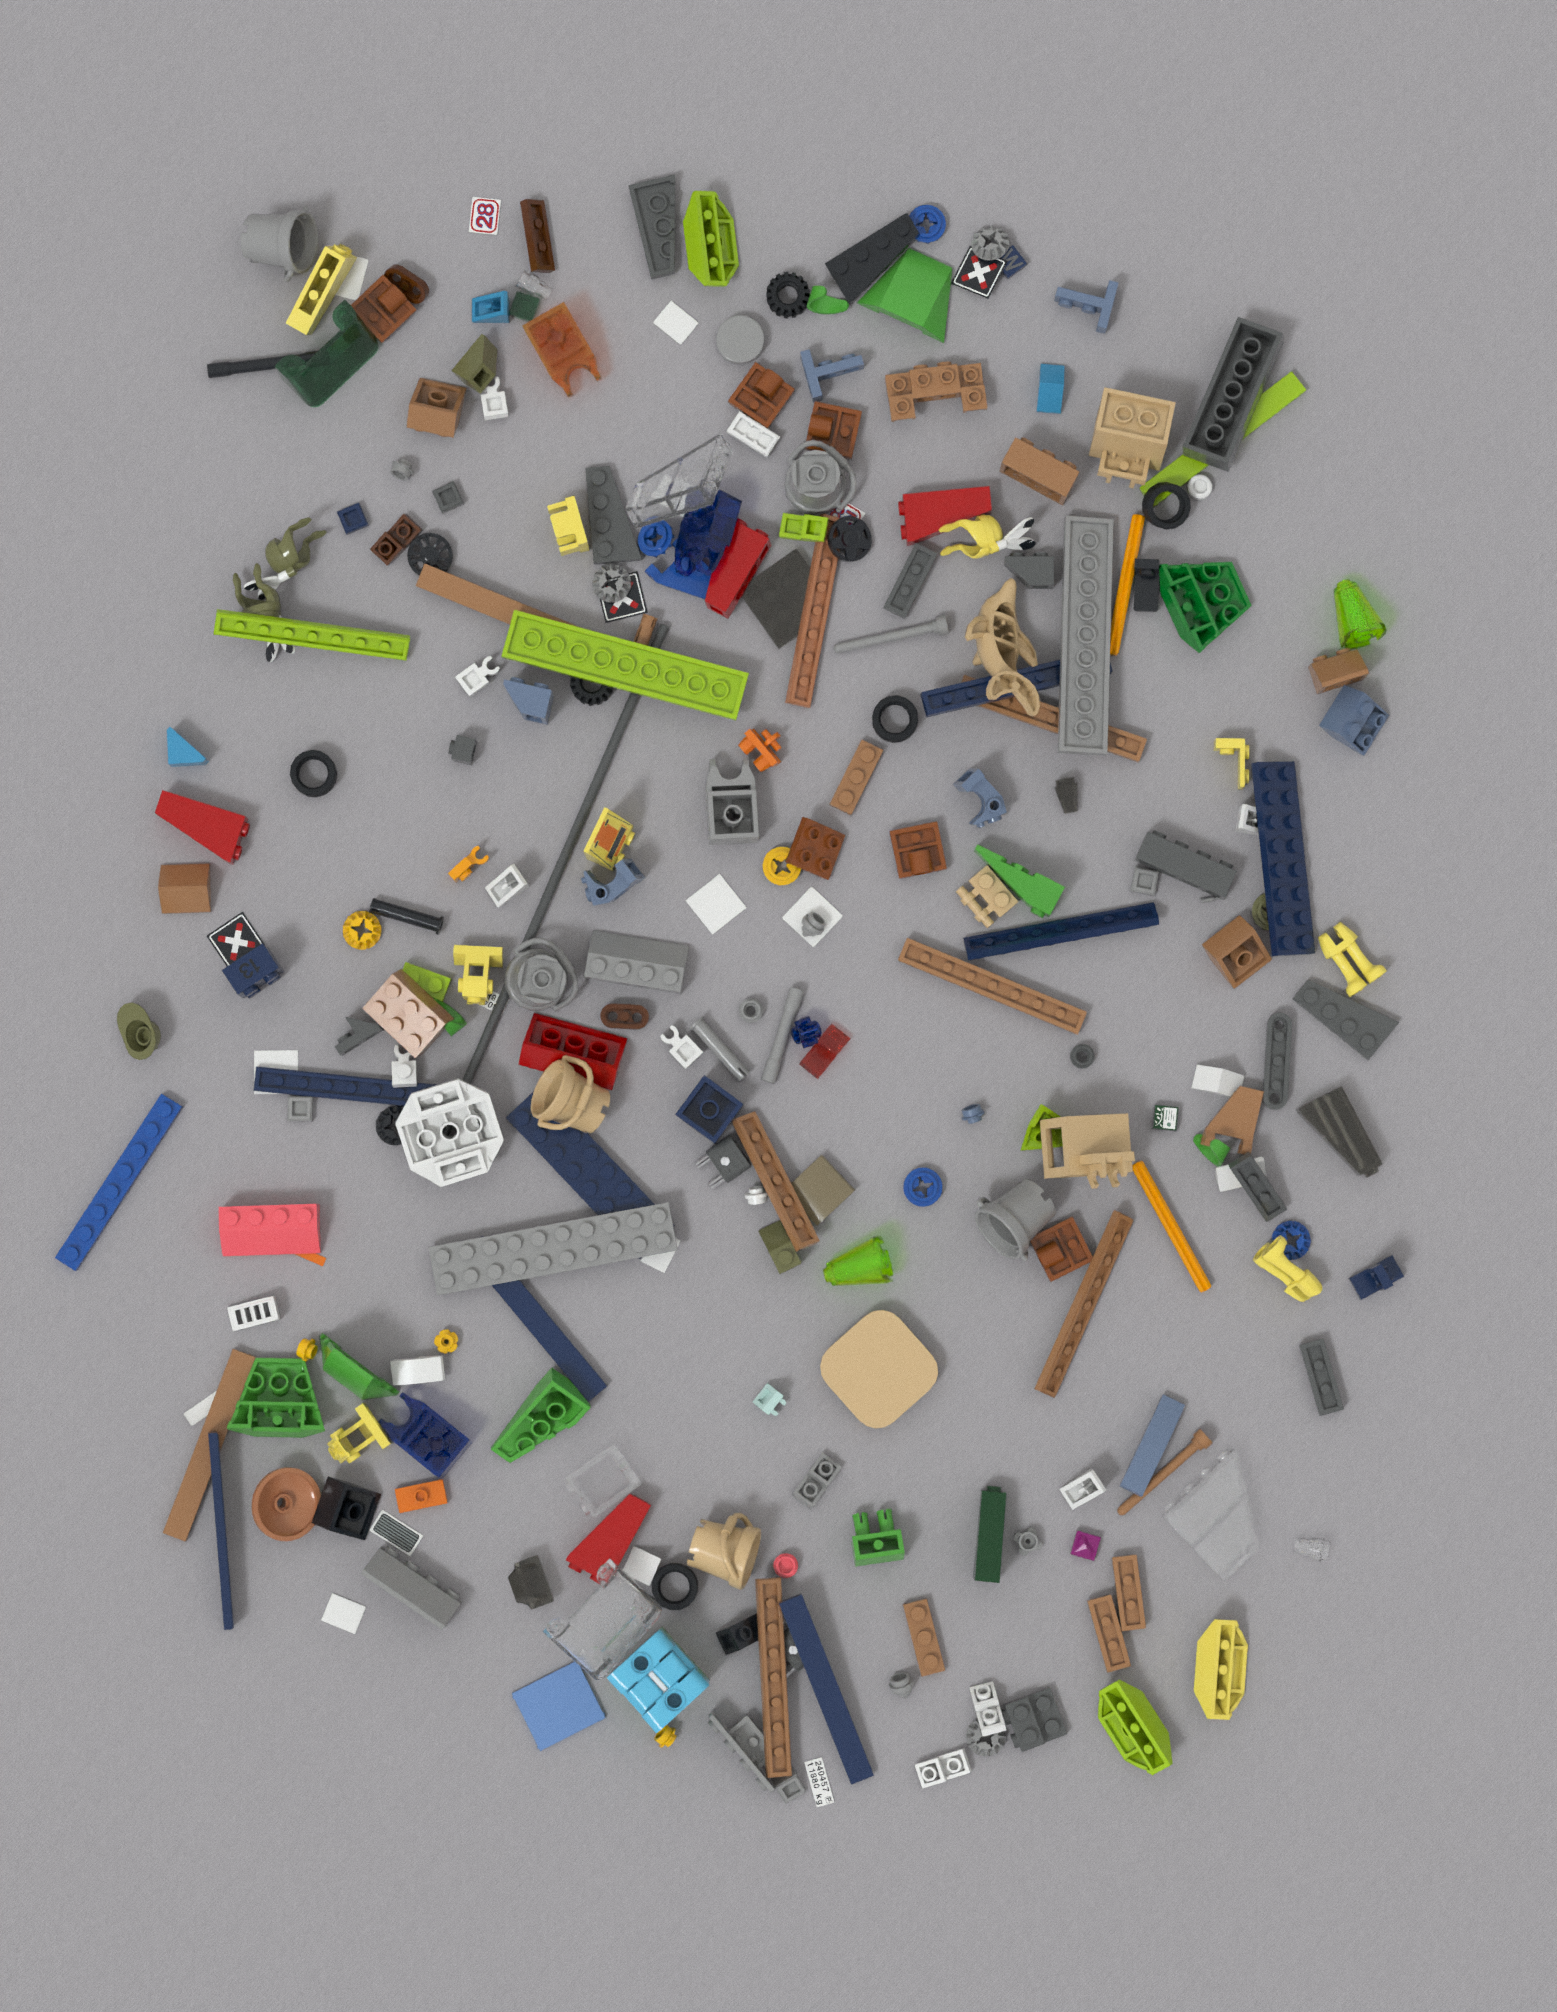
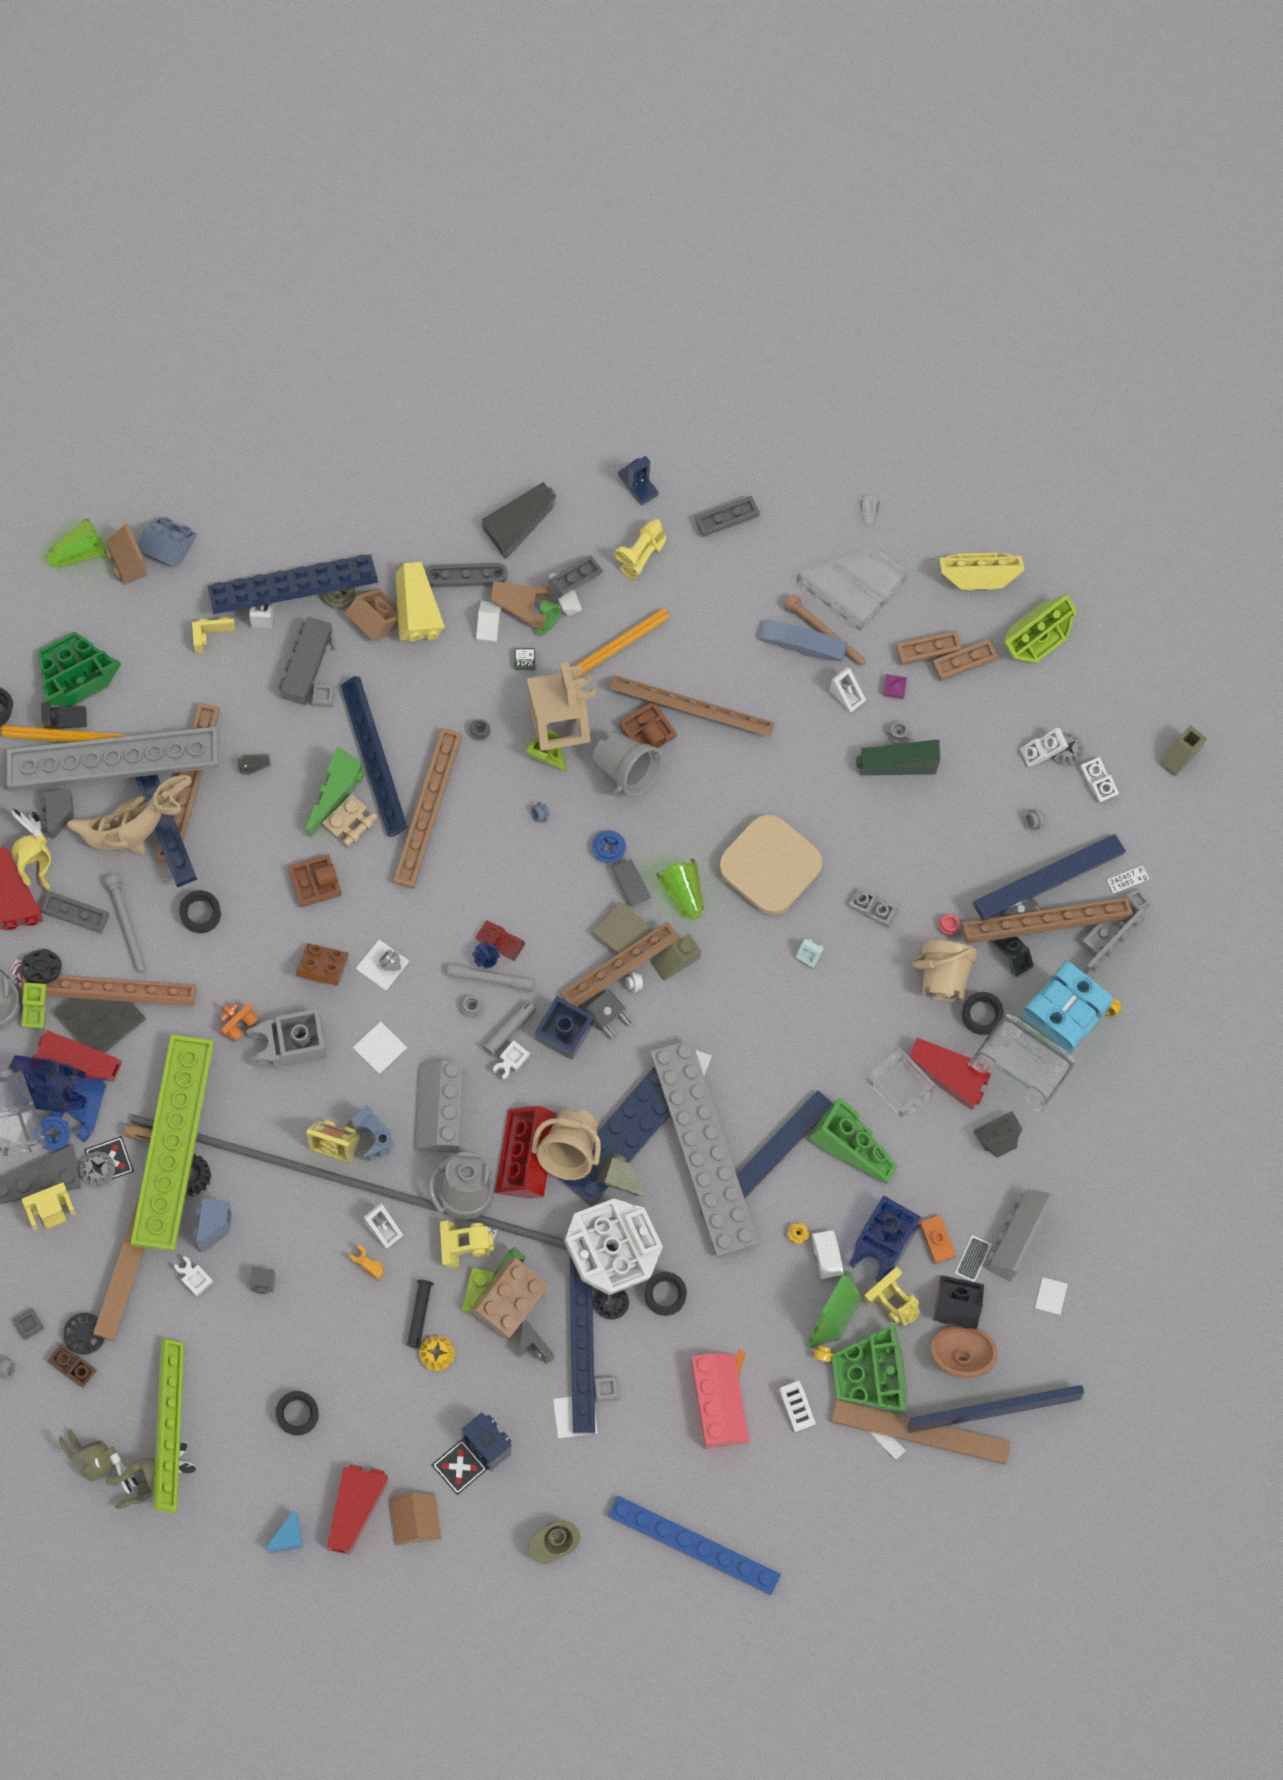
camera: 105 degrees left, 15 degrees down
(352, 518) = (55, 1408): dark blue tile -> none
(381, 1173) = (668, 1310): none -> black tyre
(403, 1071) = (561, 1298): white plate -> none
(529, 1150) = (621, 1175): none -> slope
(558, 1705) = (1100, 1101): medium blue piece -> none
(624, 1016) = (489, 1113): reddish brown plate -> none
(641, 1565) = (969, 1041): white sticker -> none
(770, 867) = (342, 1003): yellow gear -> none
(856, 777) = (255, 940): medium nougat plate -> none
(876, 1207) = (631, 882): none -> dark grey slope
(876, 1547) = (924, 851): bright green brick -> none
(924, 1637) = (992, 807): medium nougat plate -> none
(964, 1872) = (1183, 750): none -> olive slope
(974, 781) = (251, 833): sand blue tile -> none
(1034, 1719) = (1046, 711): dark grey plate -> none
(1241, 998) = (416, 604): none -> light yellow slope
(1302, 1243) = (606, 549): blue gear -> none
(1348, 938) = (382, 509): light yellow piece -> none
(1349, 1020) = (424, 523): dark grey wing -> none

